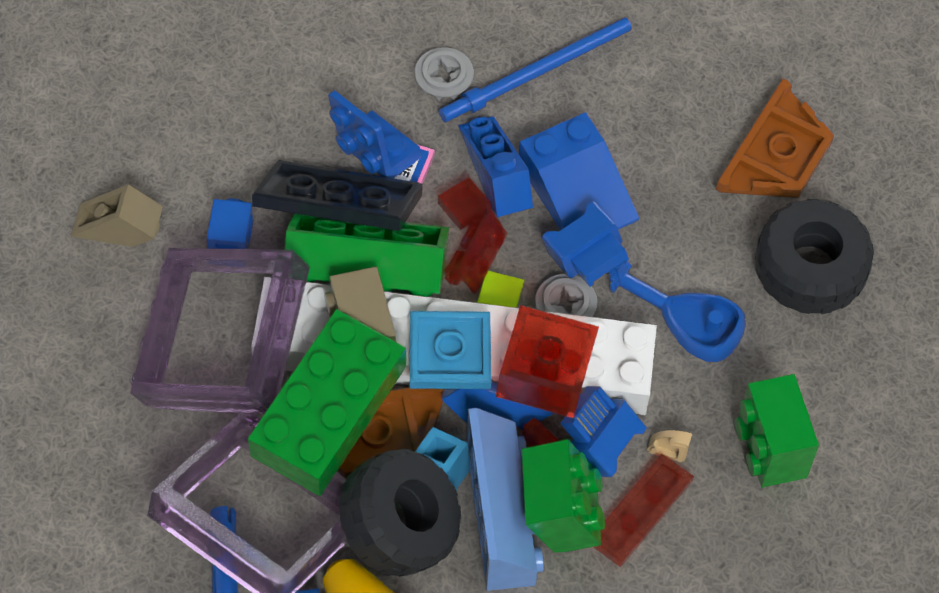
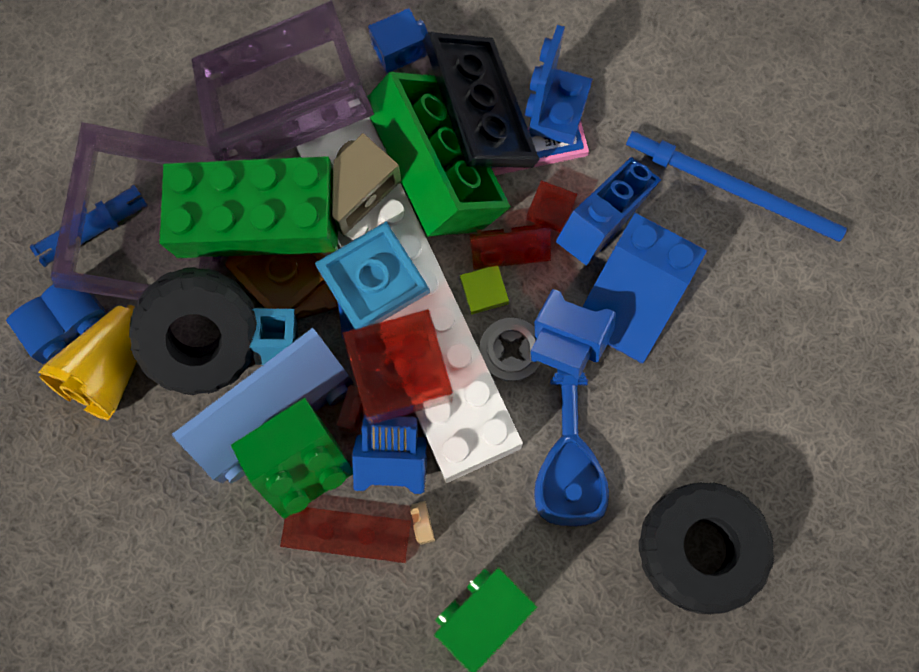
camera: 65 degrees right, 15 degrees up
(450, 60) = (668, 98): light grey gear -> none
(778, 150) = (805, 448): dark orange wing -> none

